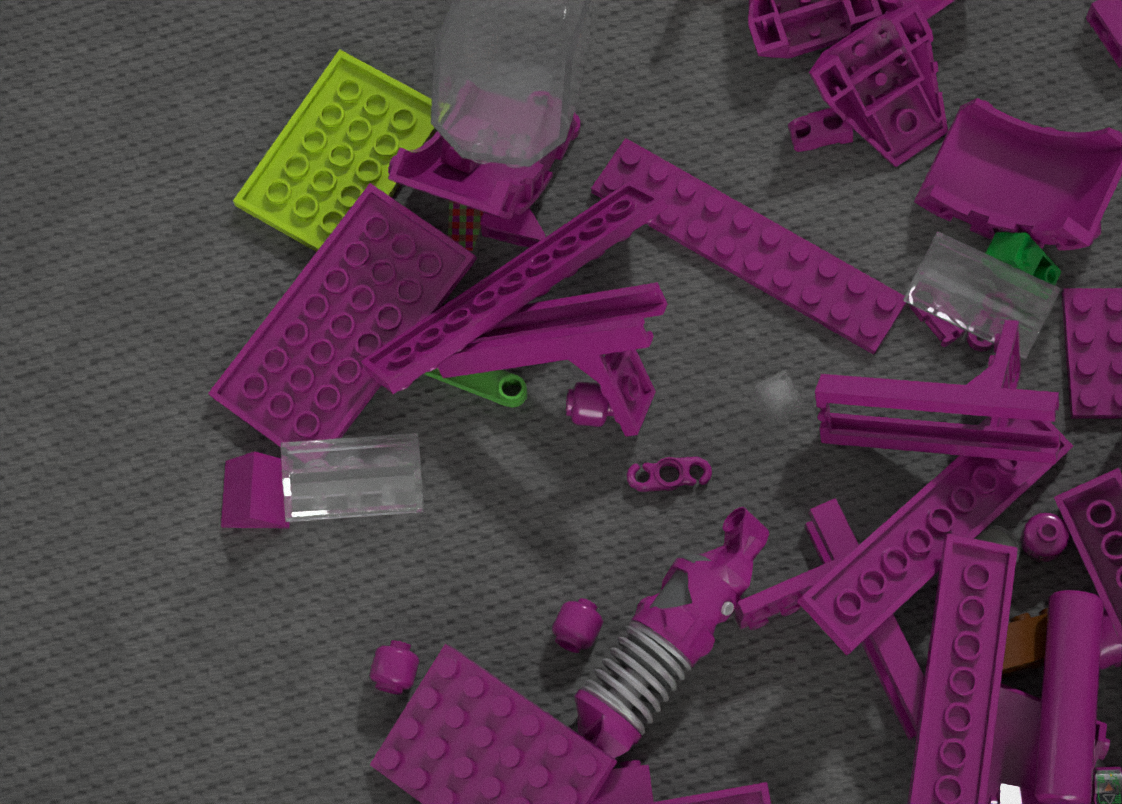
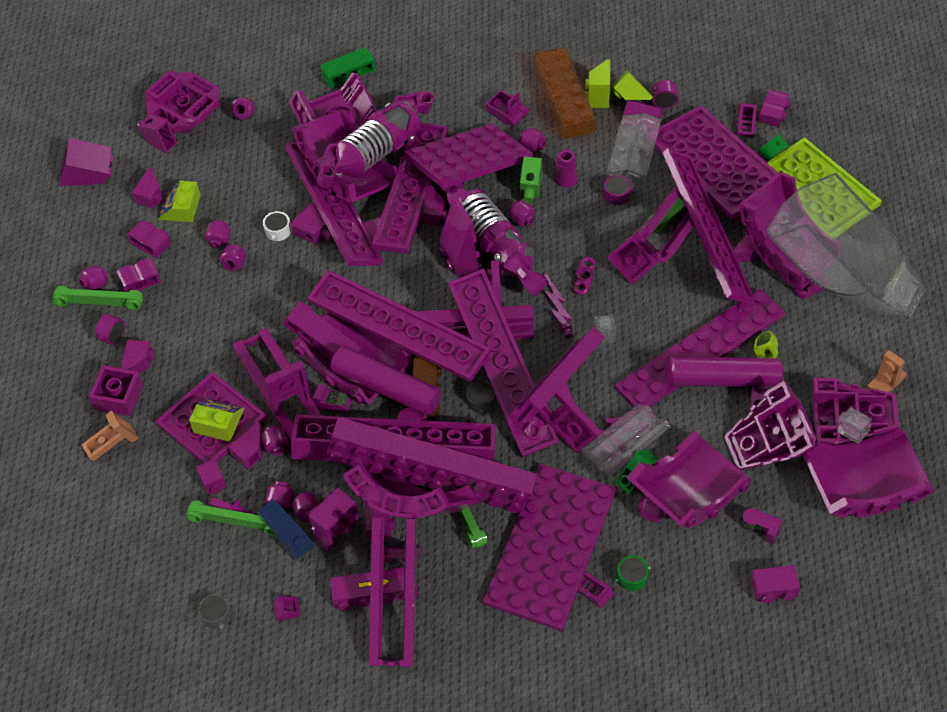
camera: 110 degrees right, 15 degrees down
(173, 269) = (774, 107): none -> magenta brick
(203, 462) = (664, 94): none -> piece
(206, 323) = (749, 109): none -> magenta slope
(215, 523) = (629, 88): none -> lime slope
(224, 581) = (599, 86): none -> lime slope
(251, 651) = (564, 93): none -> clear orange brick
(280, 239) = (774, 147): none -> green piece
(323, 750) = (507, 108): none -> magenta piece
(456, 590) = (566, 172): none -> magenta plant
(460, 478) = (617, 190): none -> piece
(485, 634) = (531, 178): none -> bright green torso
(707, 145) = (766, 345): none -> lime rock
(707, 702) = (458, 241): none -> magenta wedge
(762, 483) = (560, 314): none -> magenta piece
(798, 185) = (724, 371): none -> magenta cylinder
(1030, 76) = (762, 523): none -> magenta leg
(1044, 537) = (477, 414): magenta head -> none

